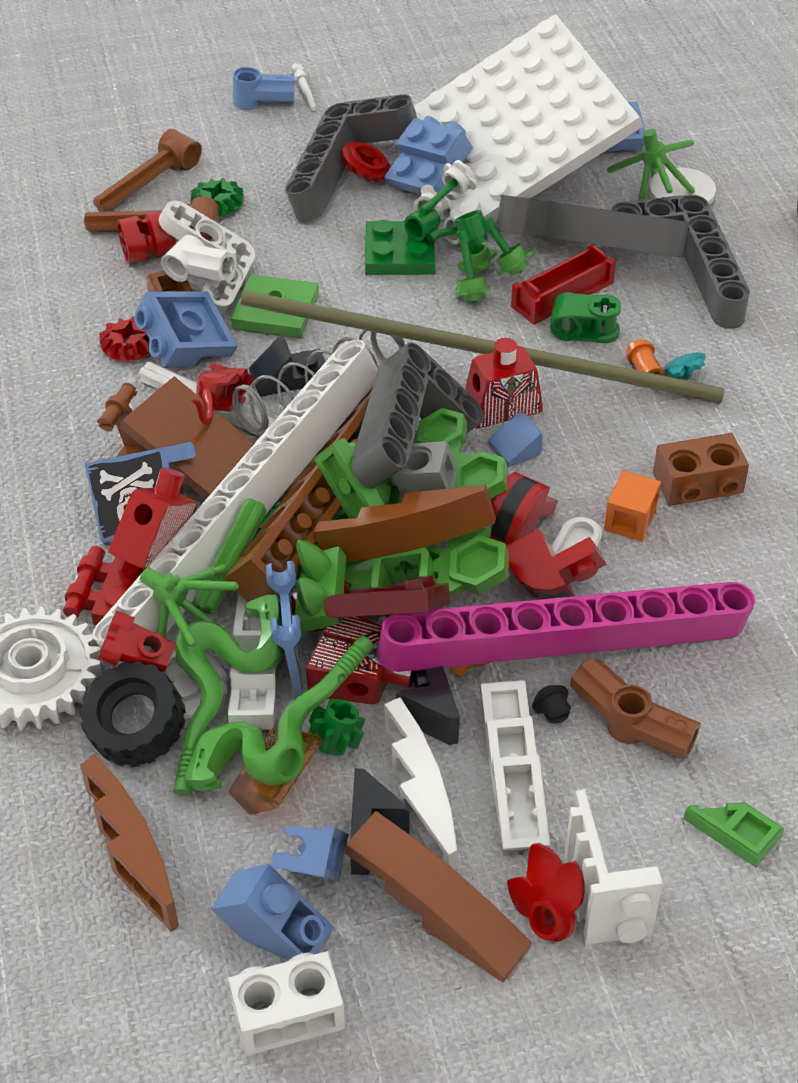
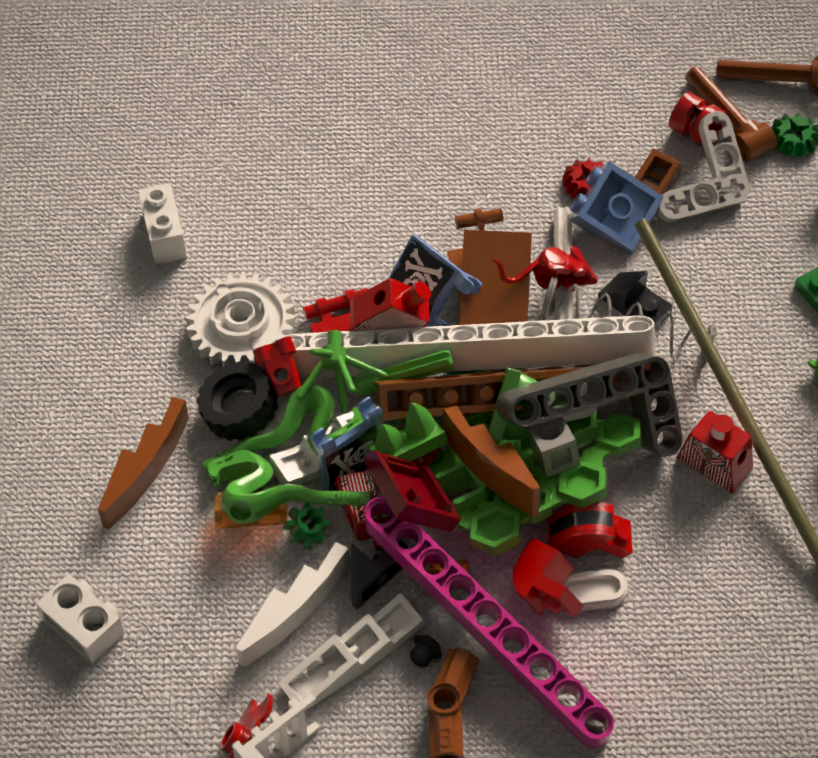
camera: 60 degrees right, 10 degrees up
(192, 258) = (681, 166): white piece -> none
(271, 913) = (137, 575): medium blue slope -> none
(272, 322) = (701, 248): bright green plate -> none
(320, 855) = (183, 573): medium blue hinge -> none
(369, 797) = (250, 583): black slope -> none
(440, 895) = (206, 661): dark orange slope -> none
(517, 440) = (675, 492): medium blue slope -> none
(632, 505) = (661, 606): orange brick -> none
(700, 469) = (745, 631): dark orange brick -> none

